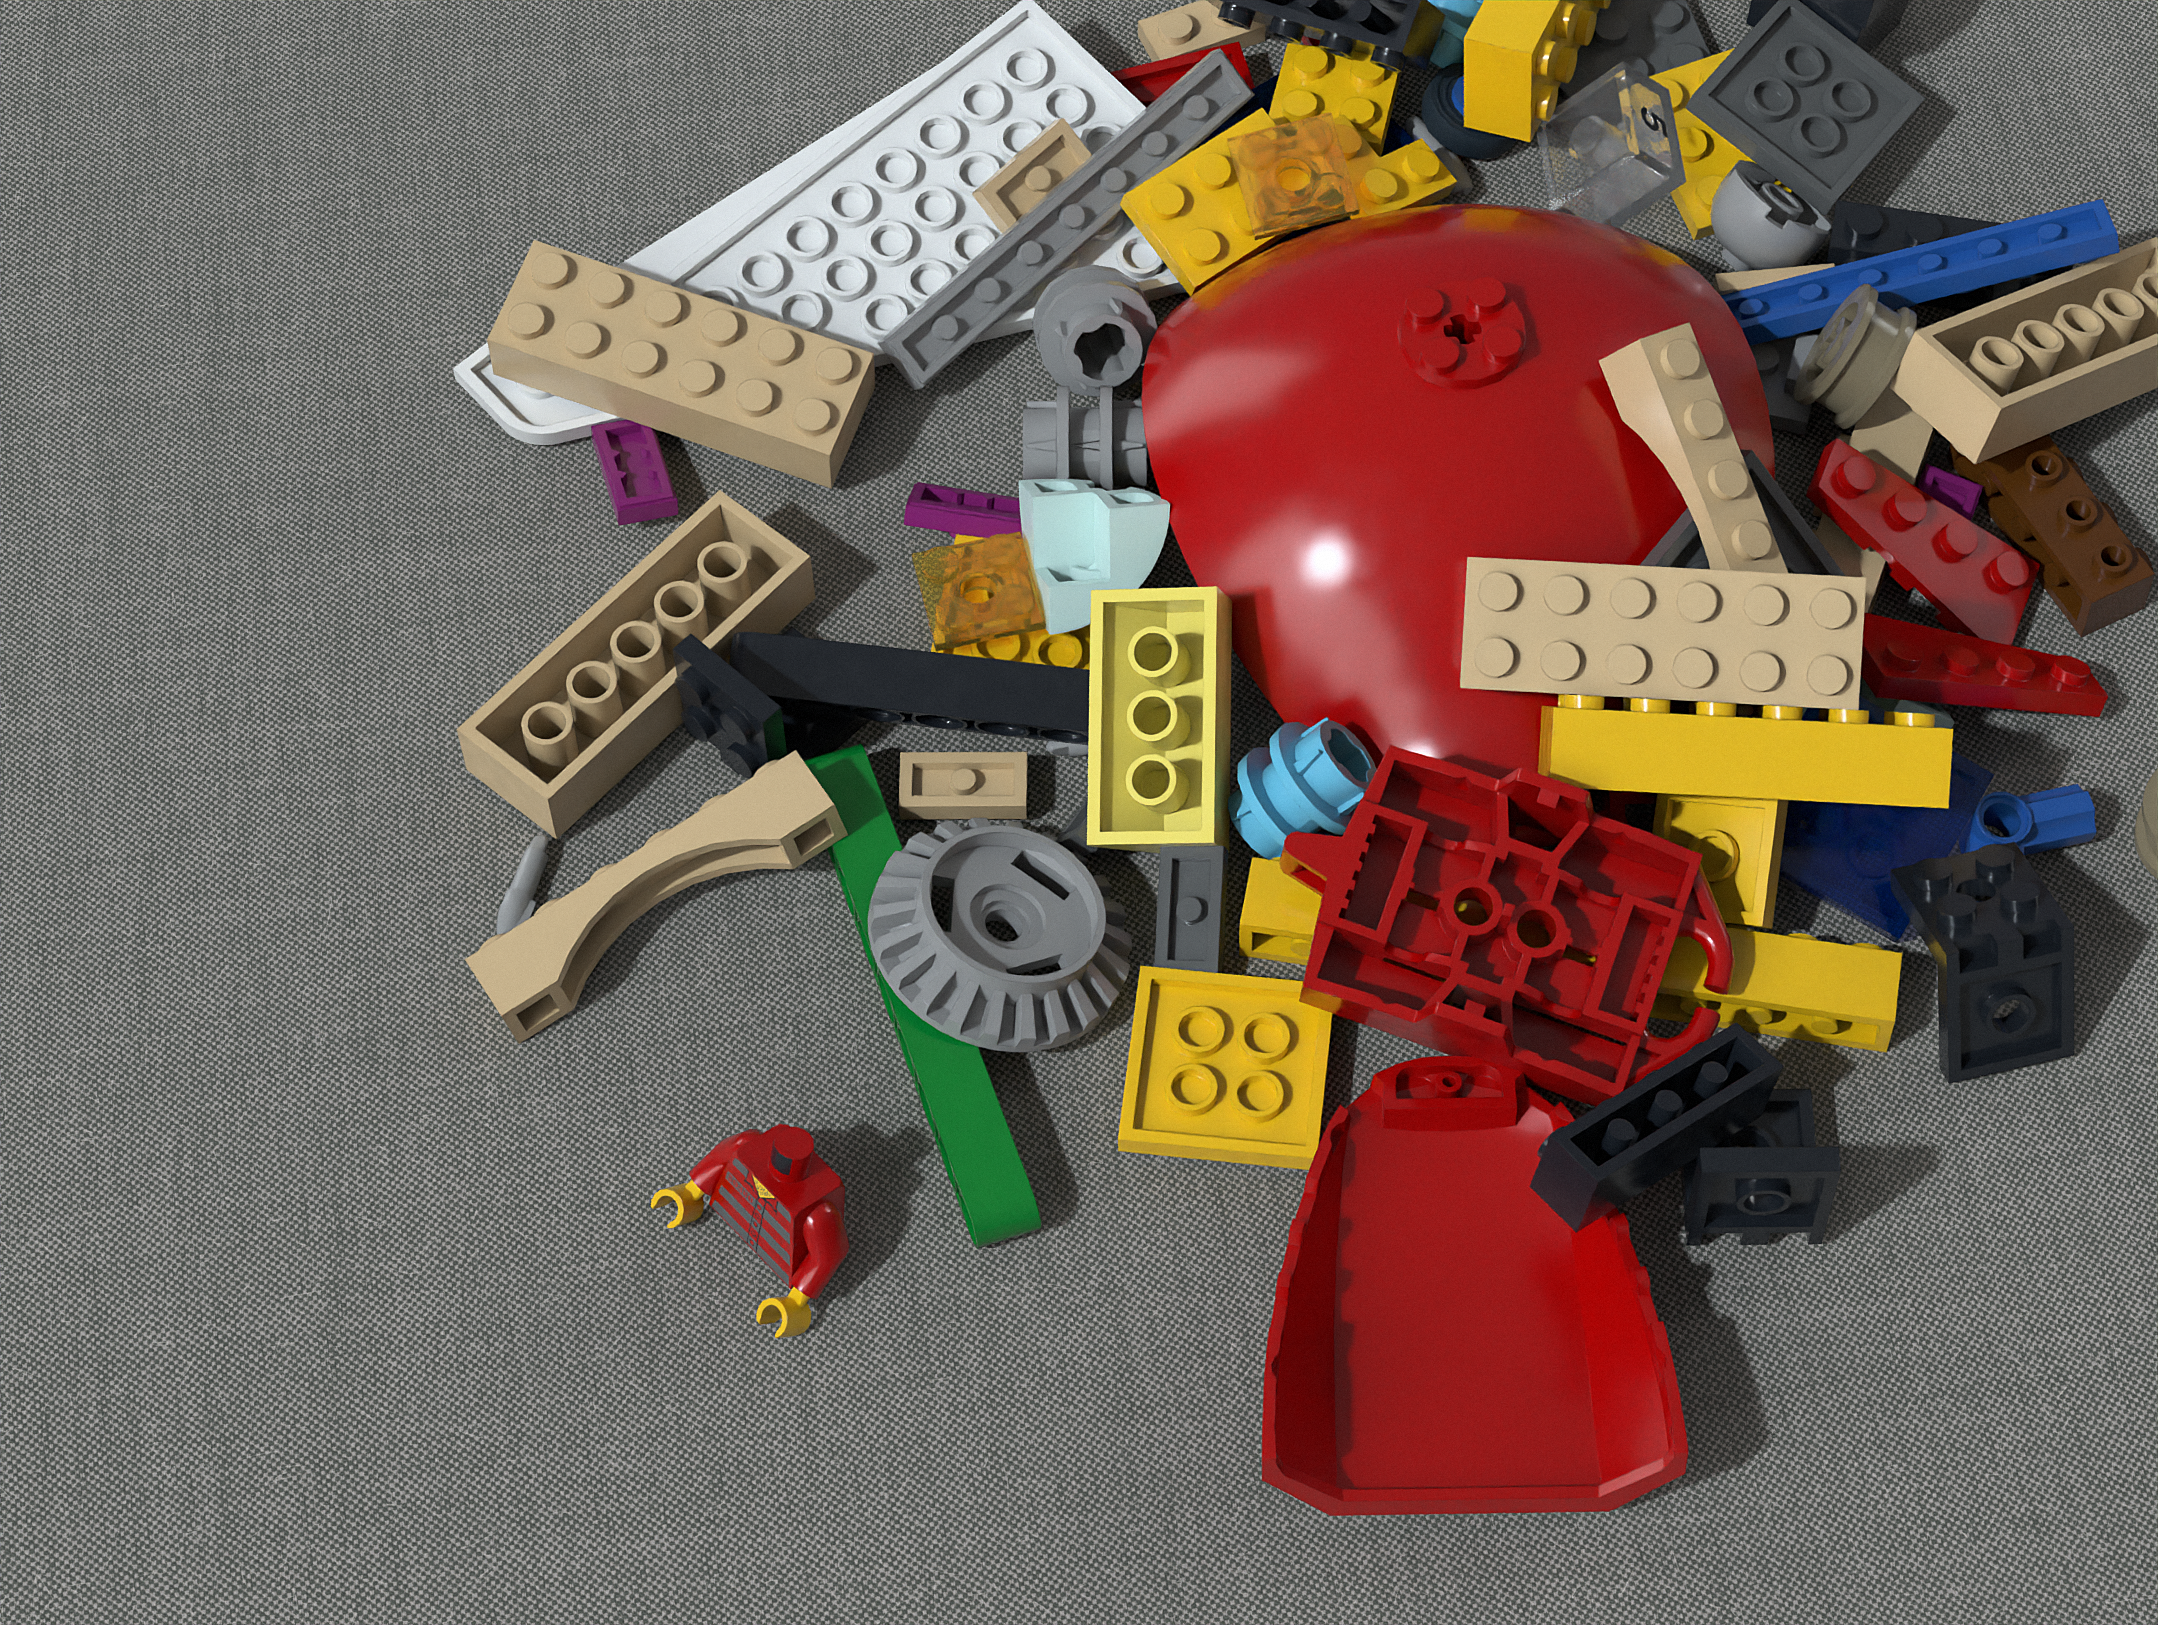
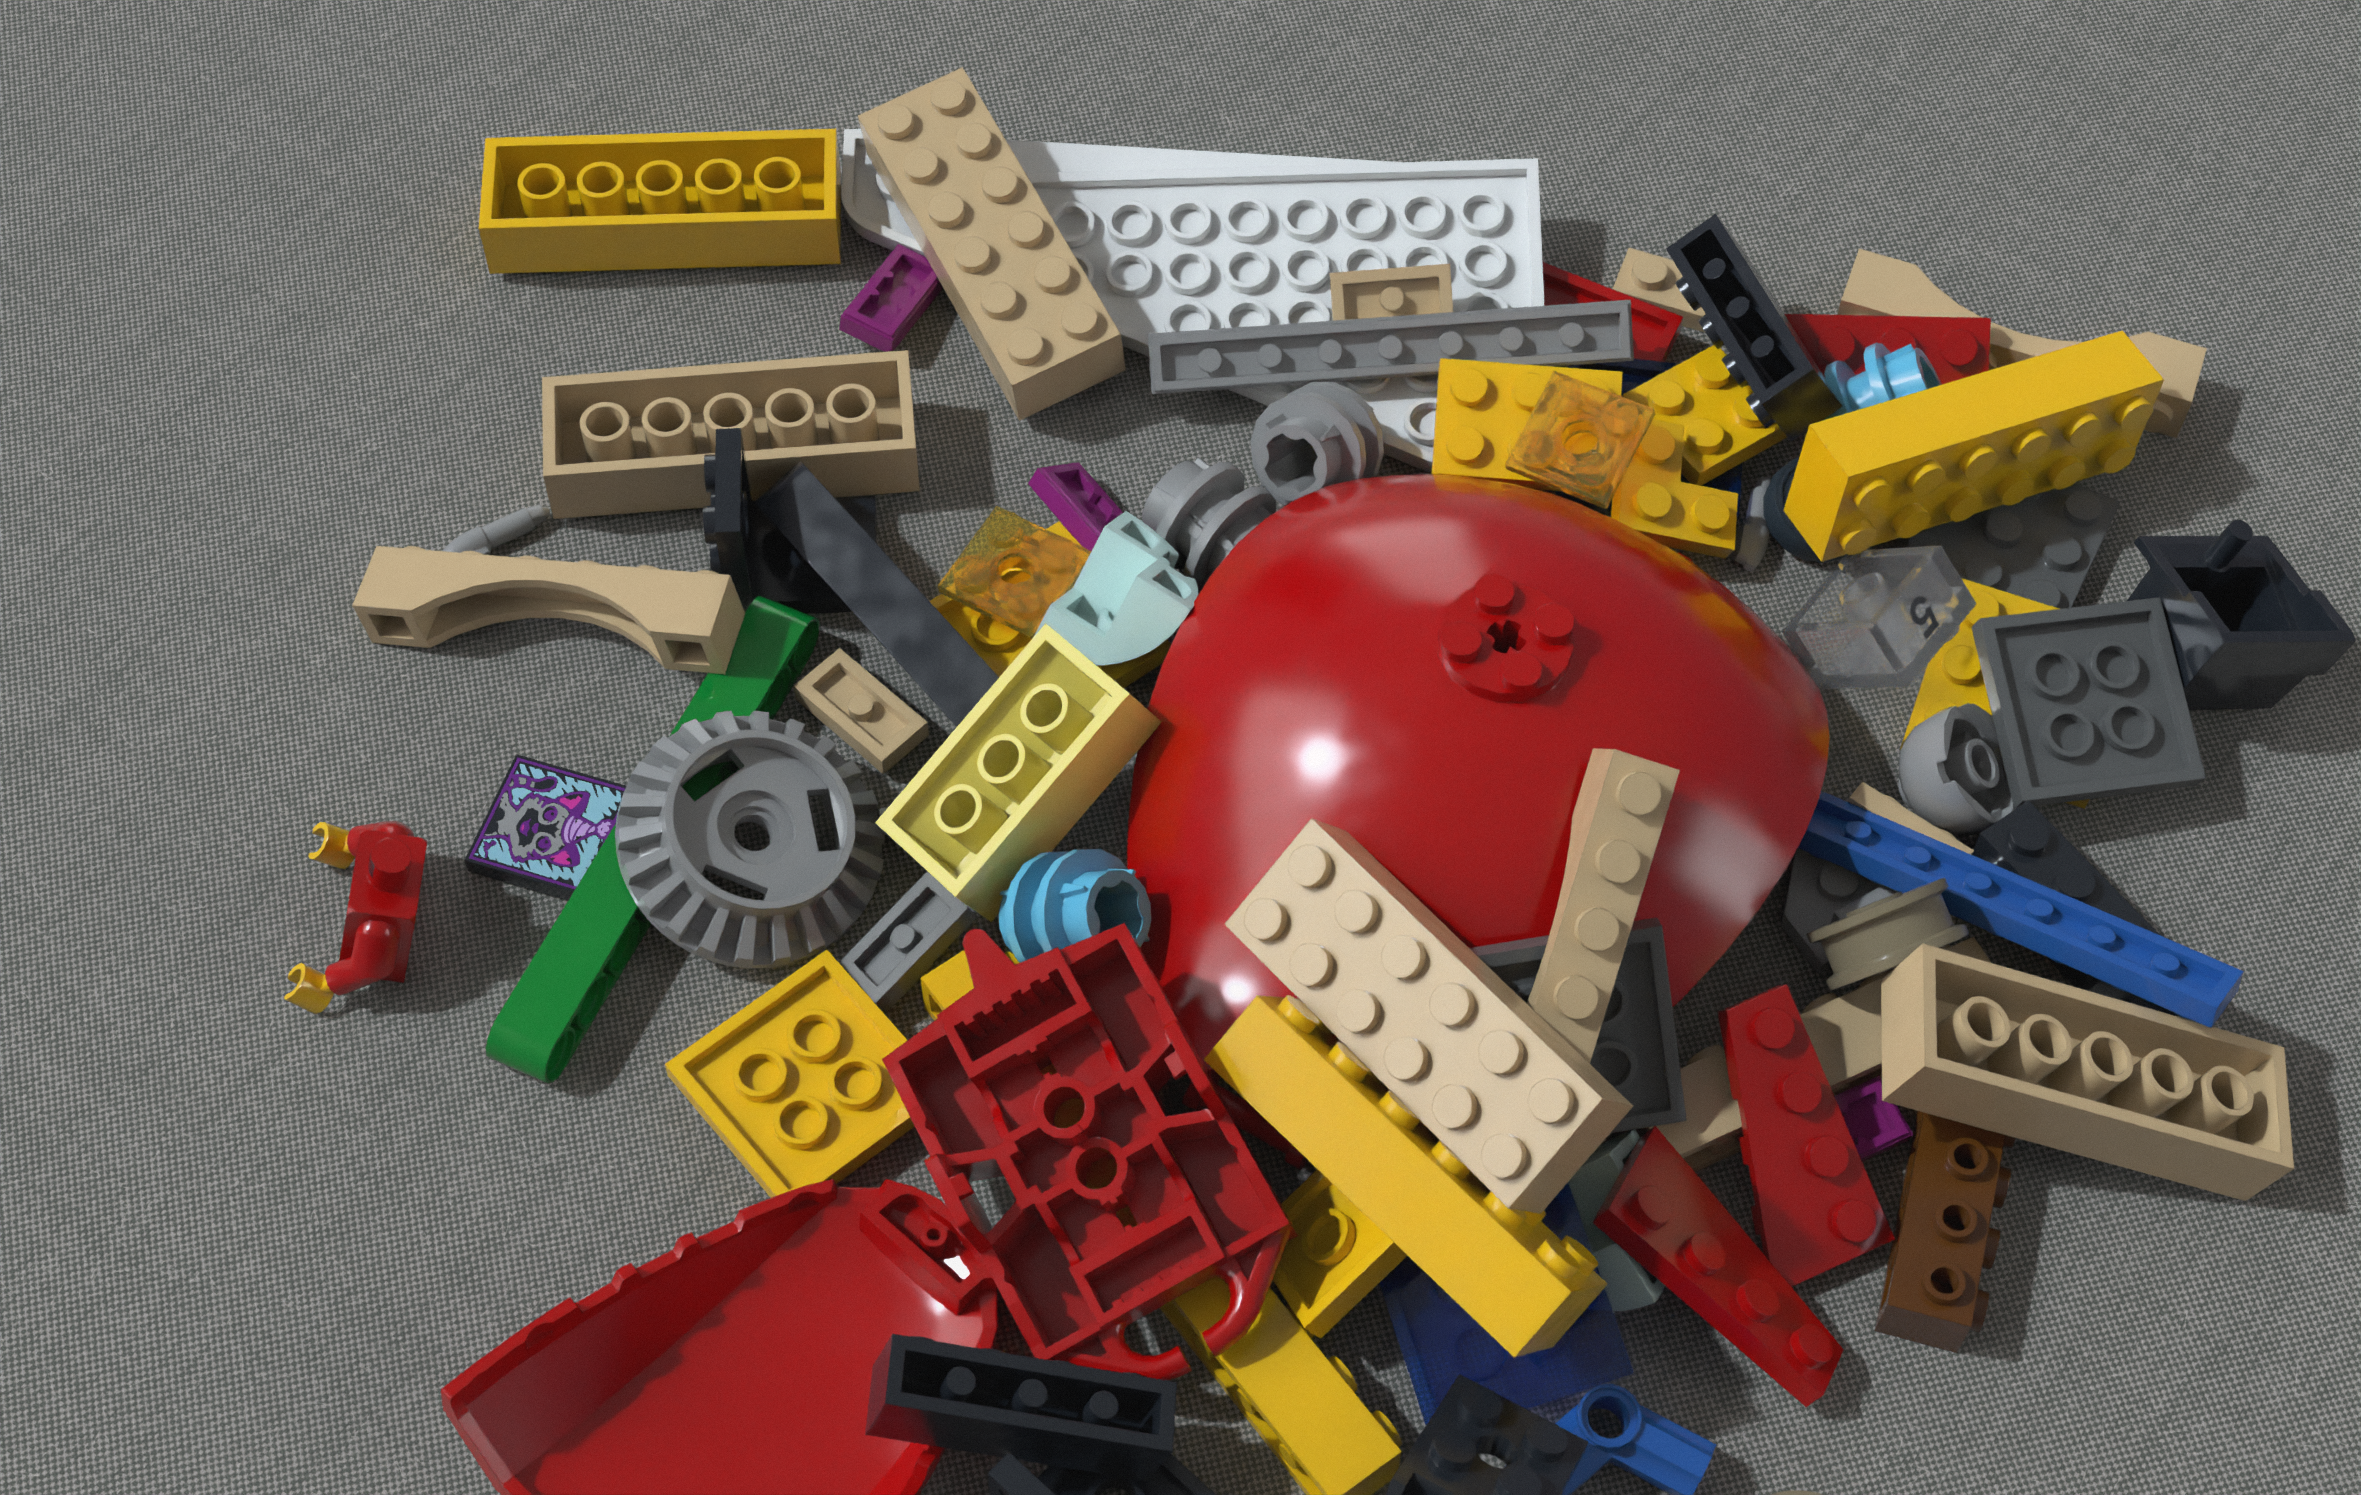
camera: 40 degrees right, 0 degrees up
(370, 532) = (661, 201): none -> yellow brick
(829, 1057) = (544, 827): none -> tile

